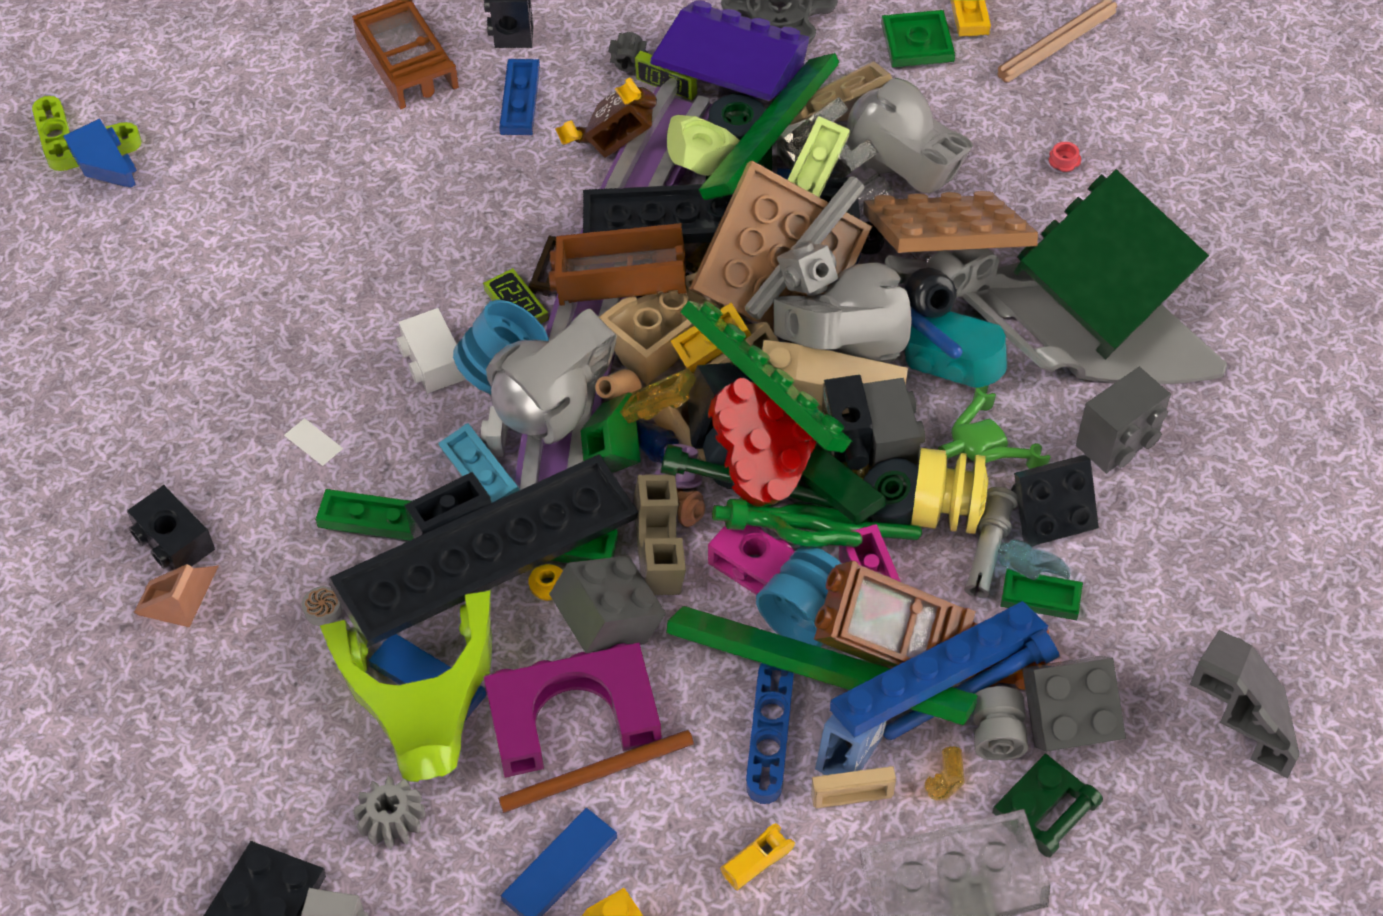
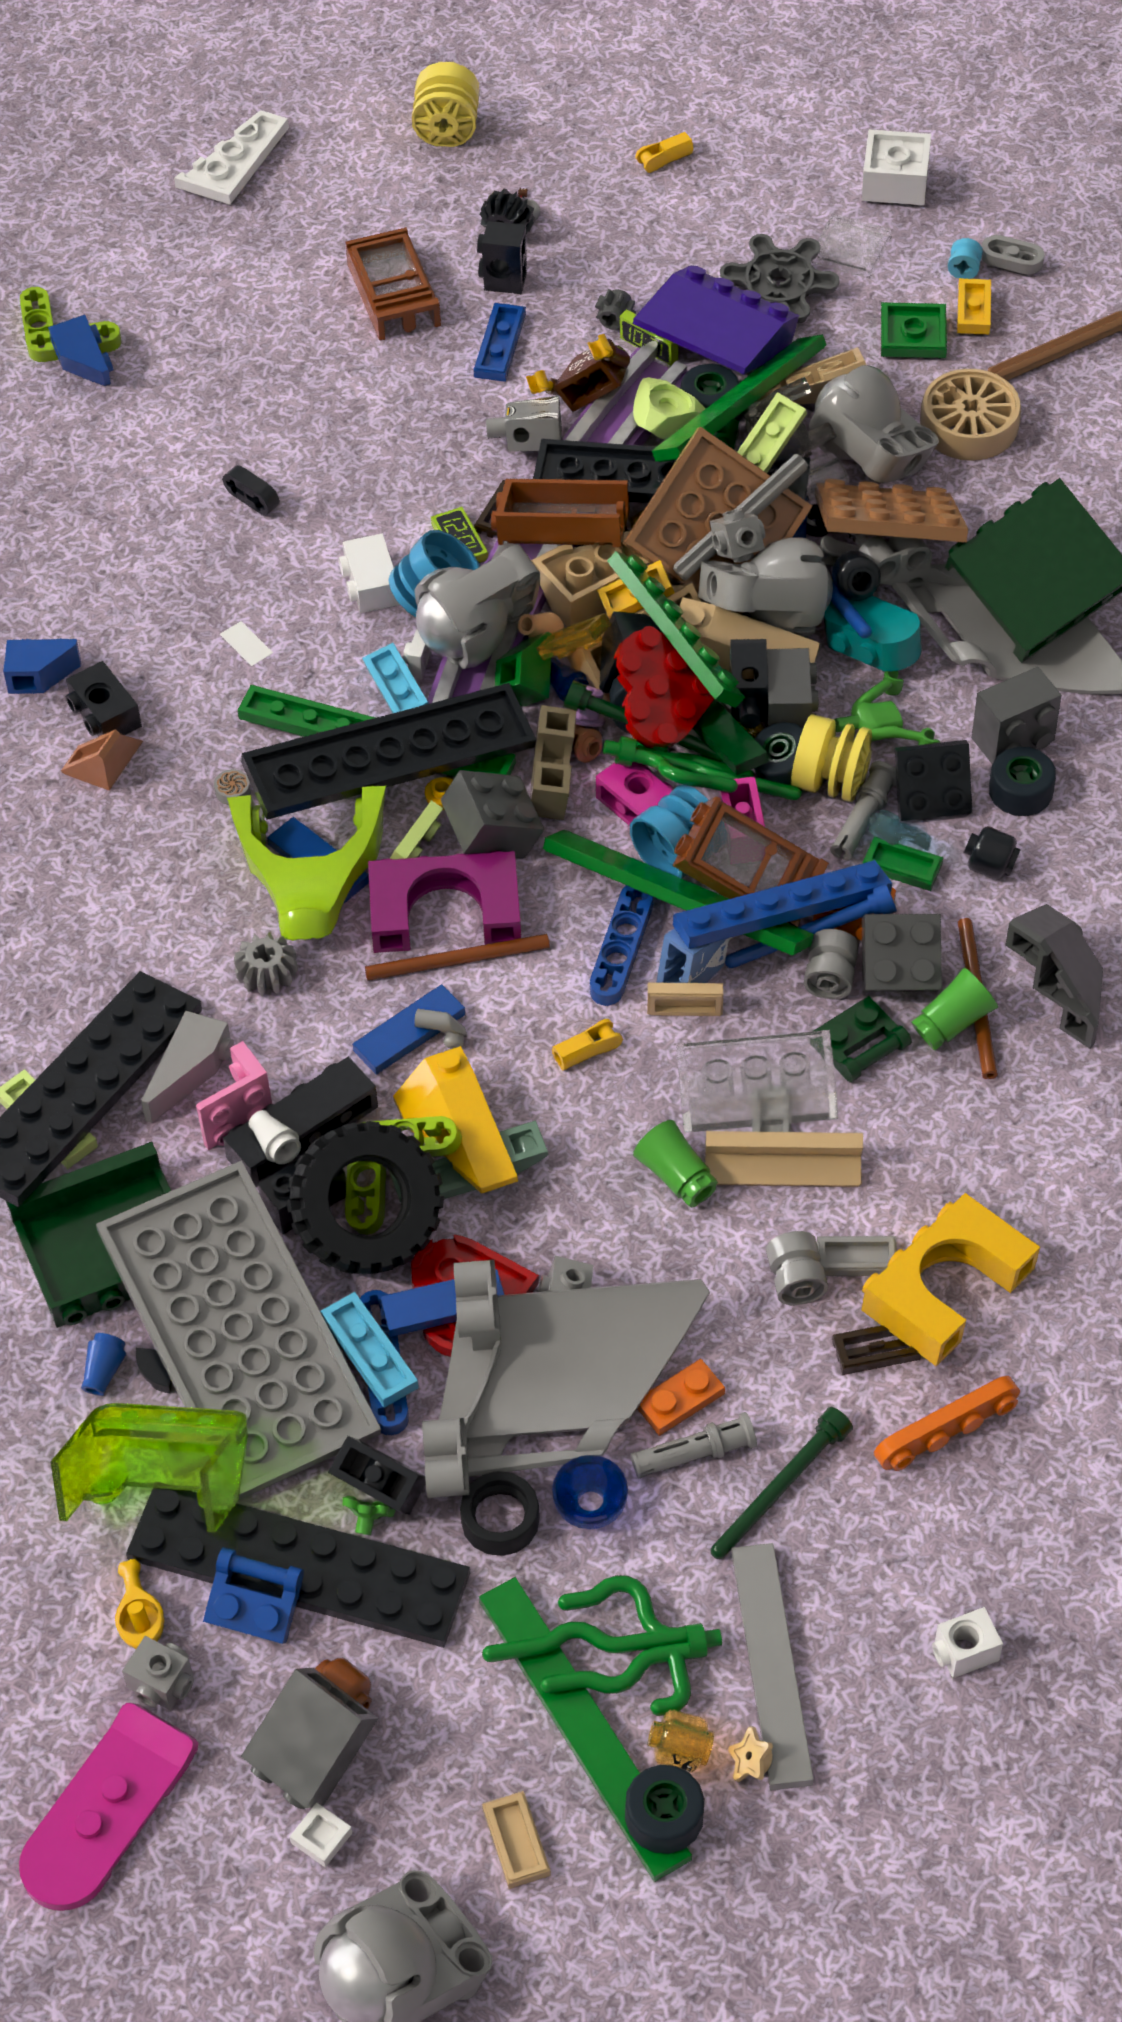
camera: 10 degrees right, 0 degrees up
(96, 495) = (39, 664): none -> blue slope
(295, 277) = (251, 490): none -> black beam
(446, 504) = (358, 706): black brick -> none
(536, 626) = (423, 828): none -> yellowish green plate
(565, 175) = (527, 423): none -> light grey torso
(596, 855) = (443, 1022): none -> light grey arm
(950, 779) = (775, 1007): clear yellow arm -> none
(992, 103) = (972, 404): none -> tan piece
(1065, 156) = (1032, 465): coral plate -> none
(1133, 571) = (992, 853): none -> black head
(1142, 487) = (1022, 781): none -> black wheel
(1143, 759) = (954, 1010): none -> bright green plant
(1158, 740) = (981, 1026): none -> dark orange piece

